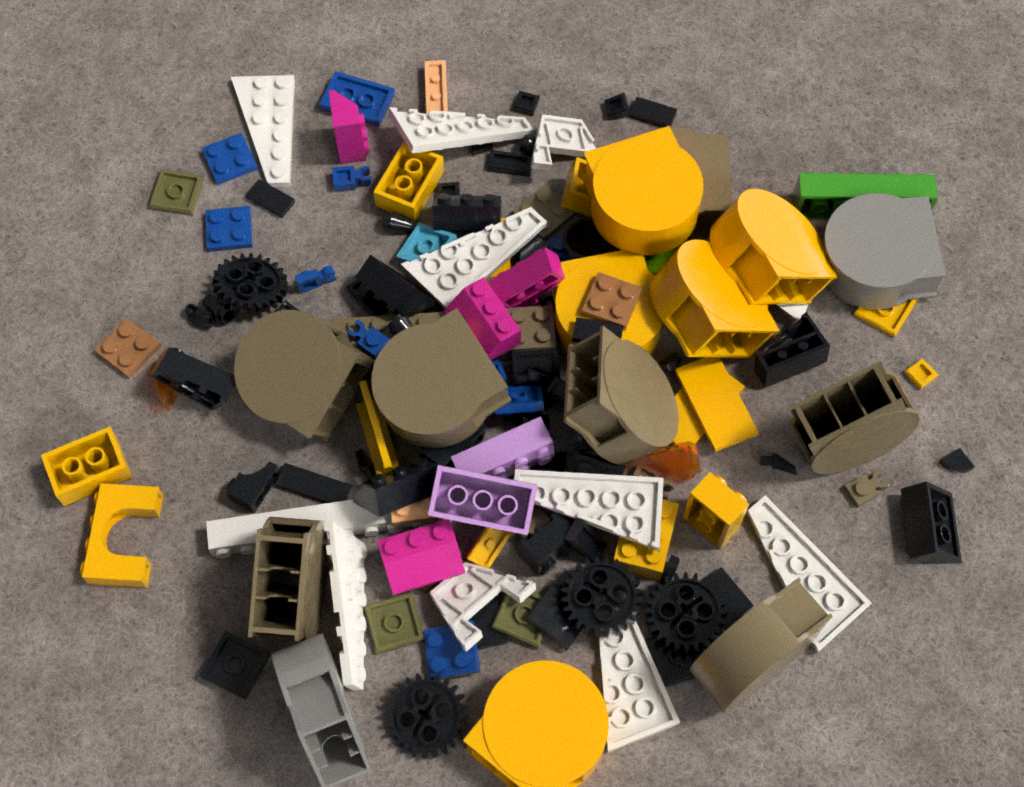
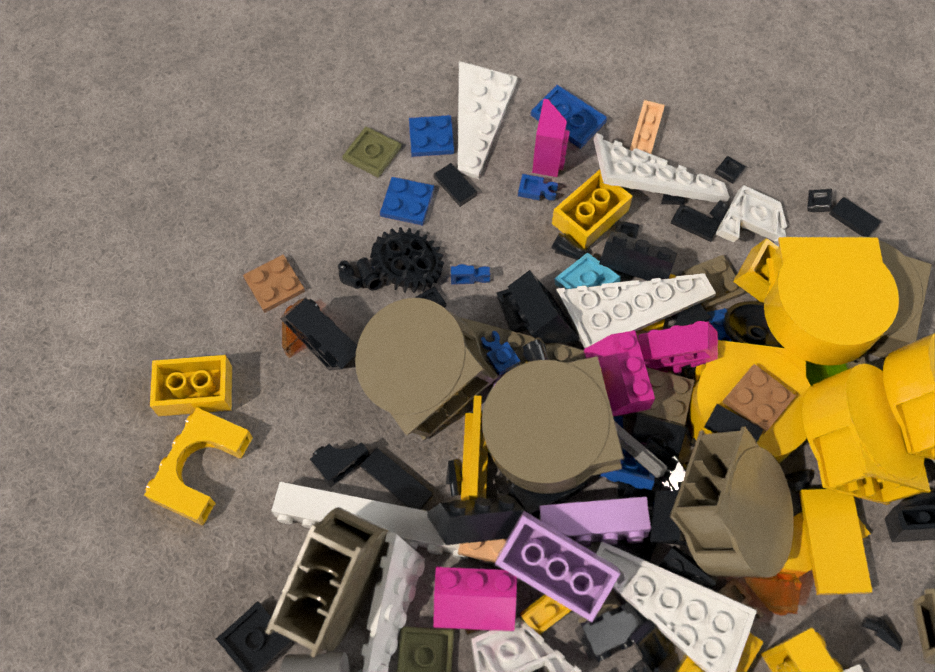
camera: 20 degrees right, 0 degrees up
(524, 383) = (640, 453): none -> light grey axle

